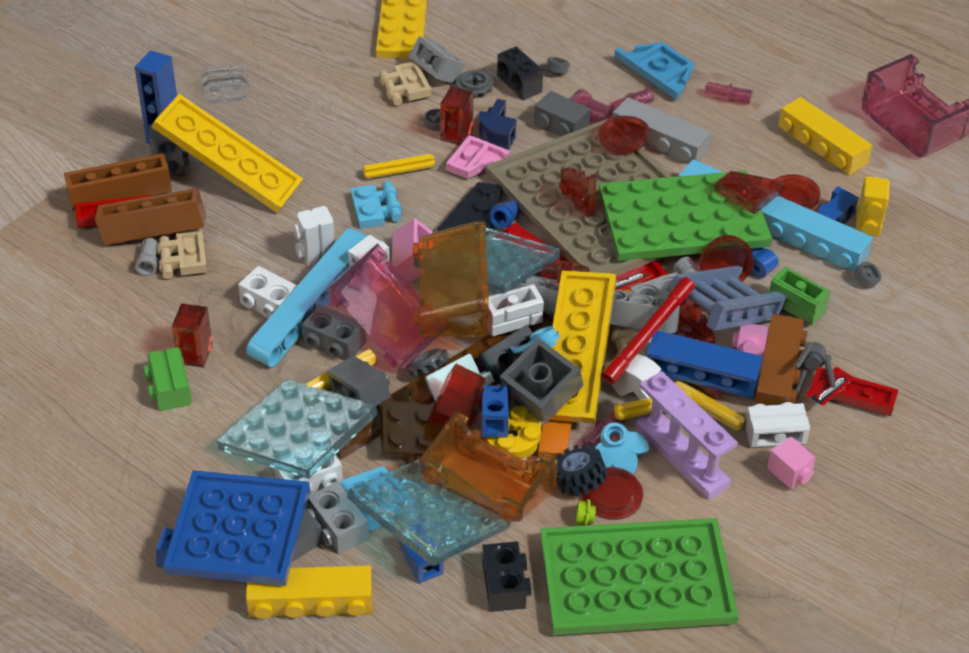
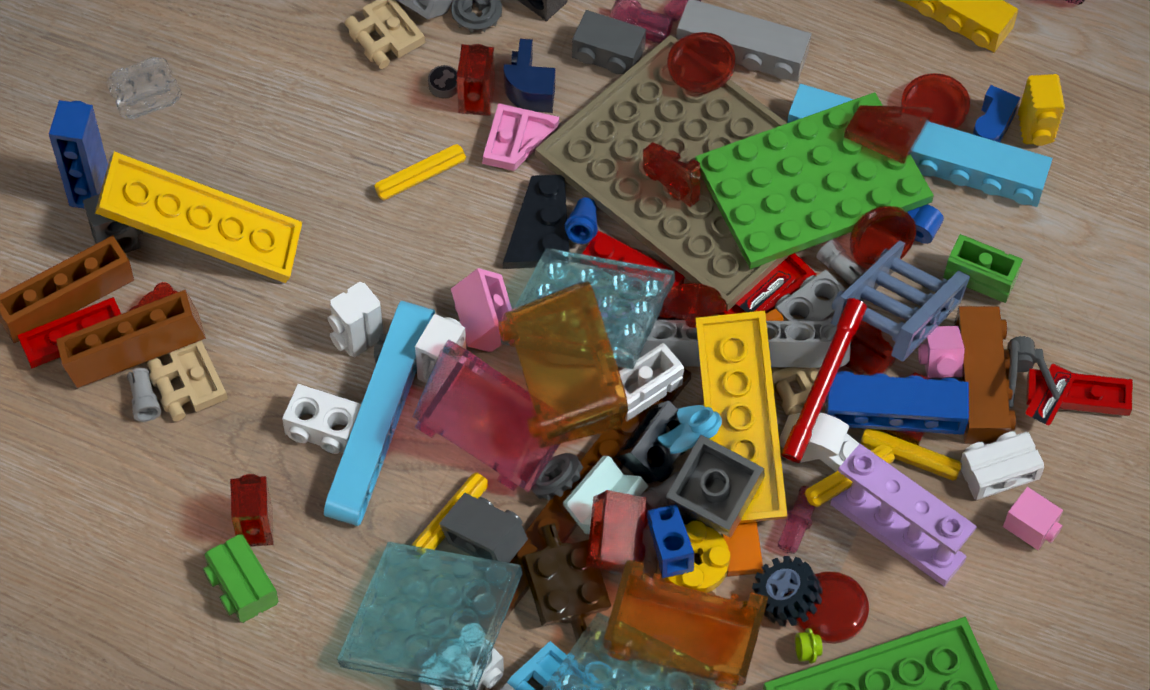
camera: 15 degrees left, 15 degrees up
(333, 333) = (427, 453): dark grey brick -> none
(368, 207) = (401, 247): medium azure plate -> none
(625, 450) = (830, 549): medium azure plate -> none
(867, 274) = (1055, 211): dark grey tile -> none

